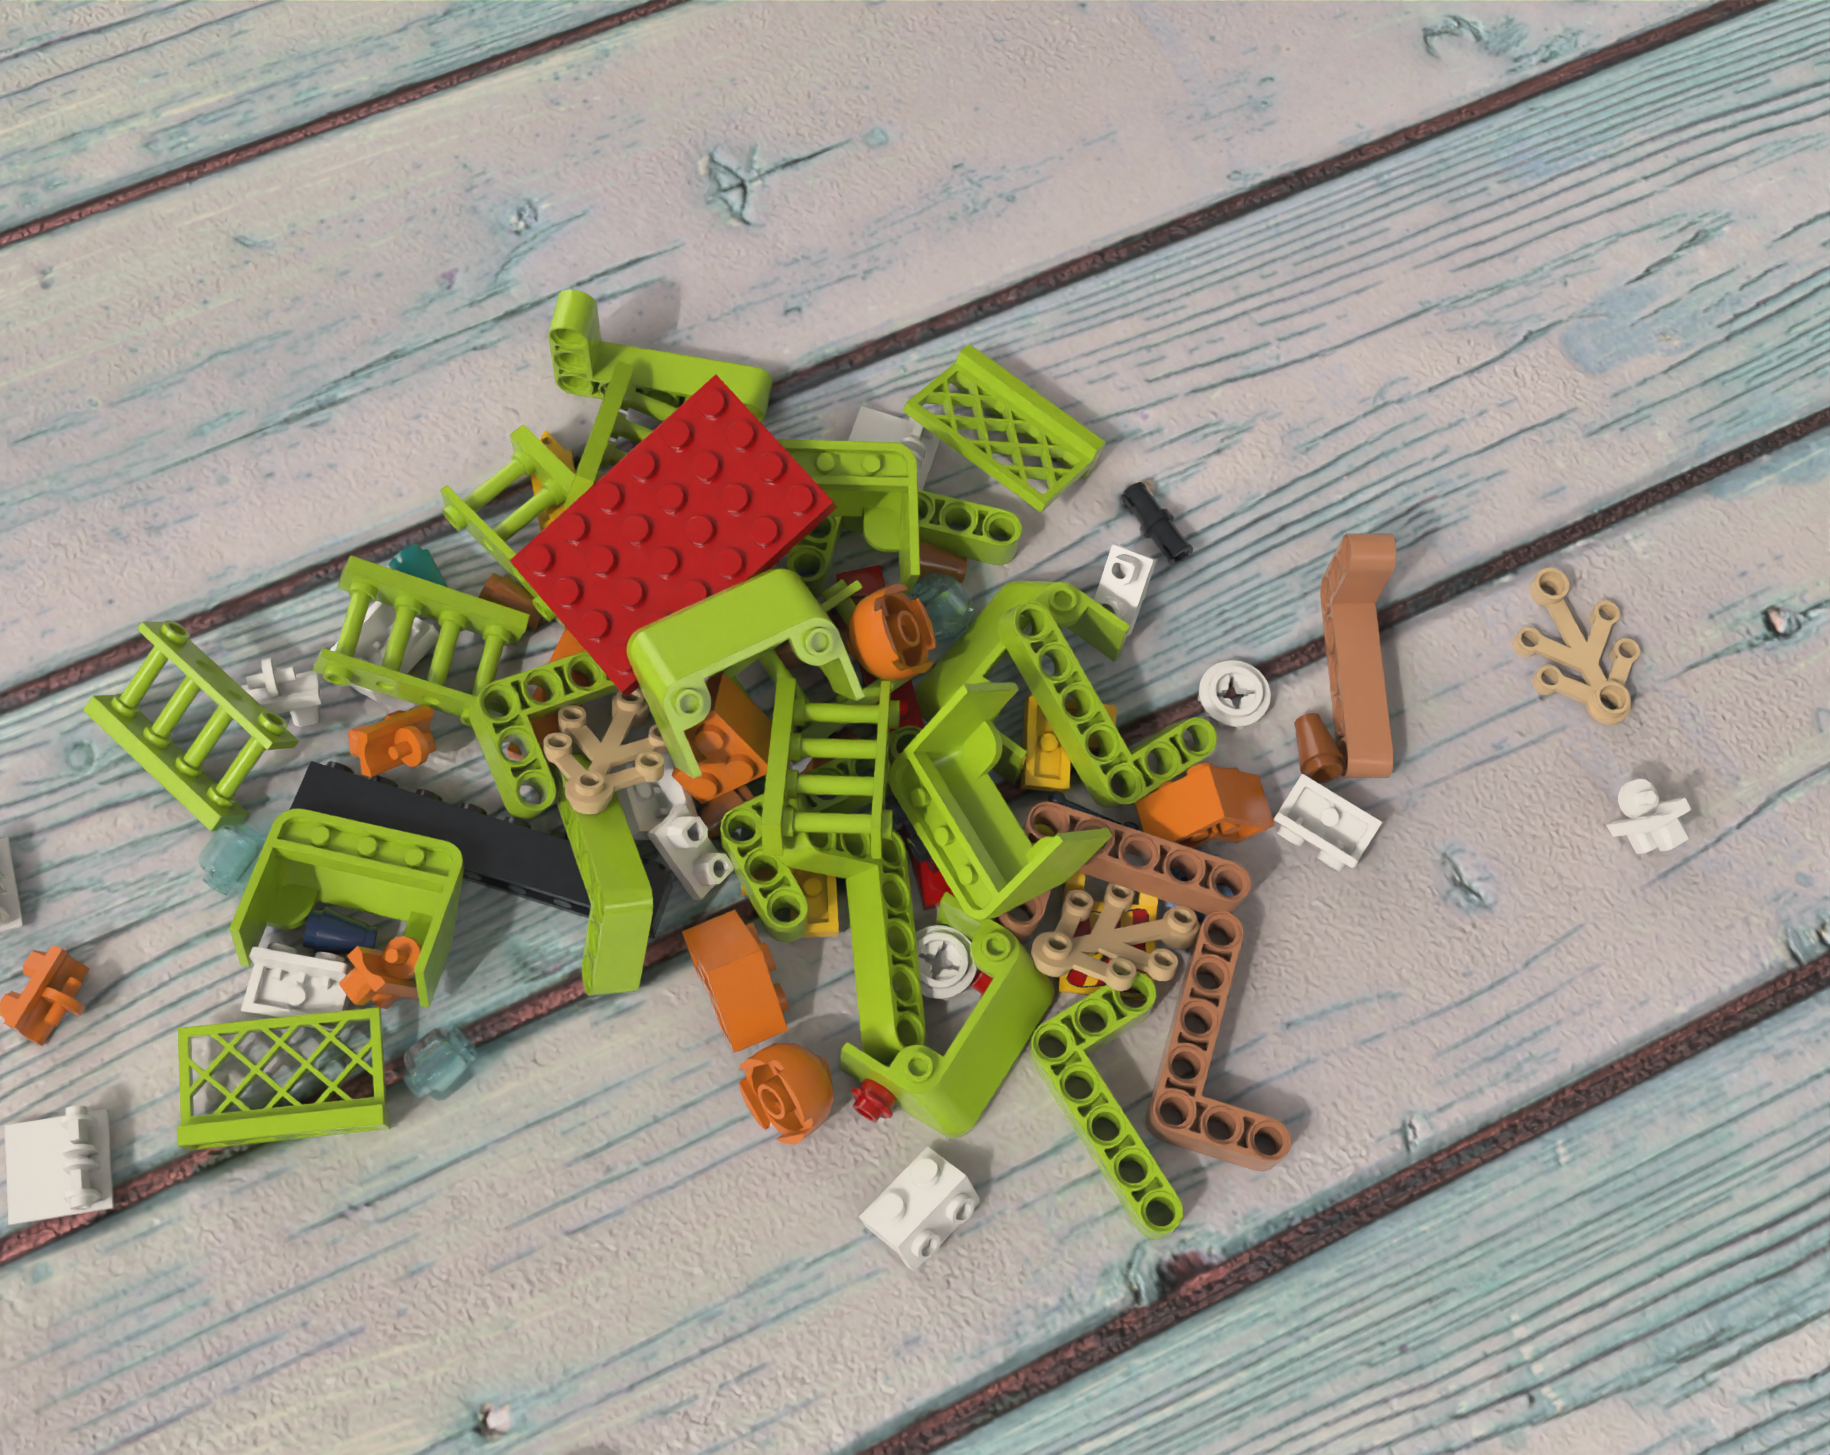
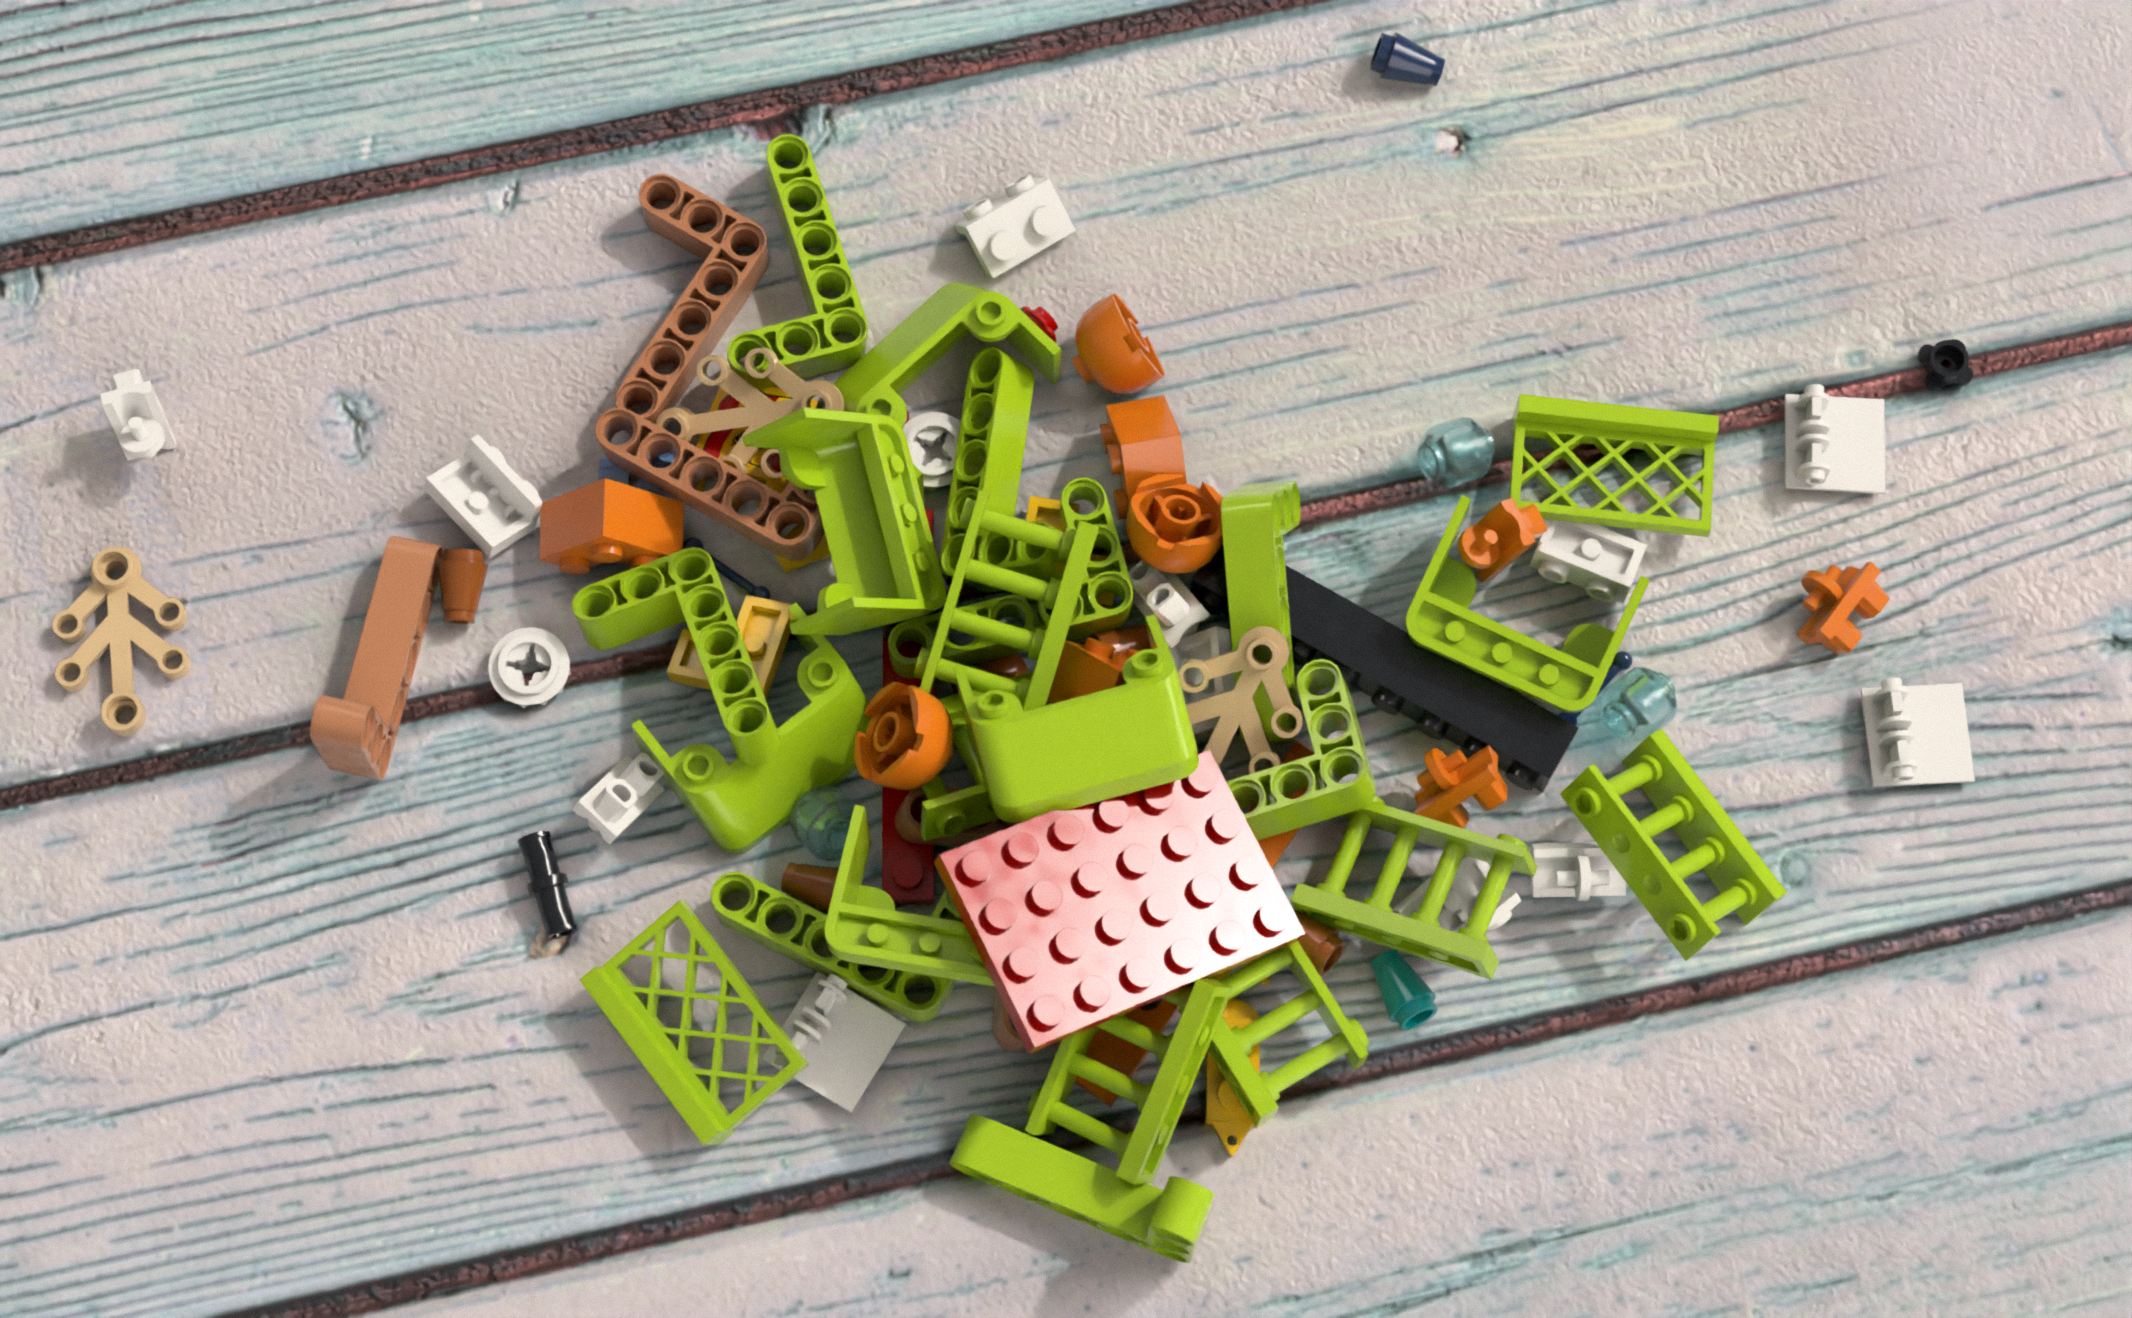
camera: 160 degrees left, 5 degrees up
(337, 933) = (1541, 606): dark blue cone -> none
(694, 902) = (1174, 523): none -> orange cylinder

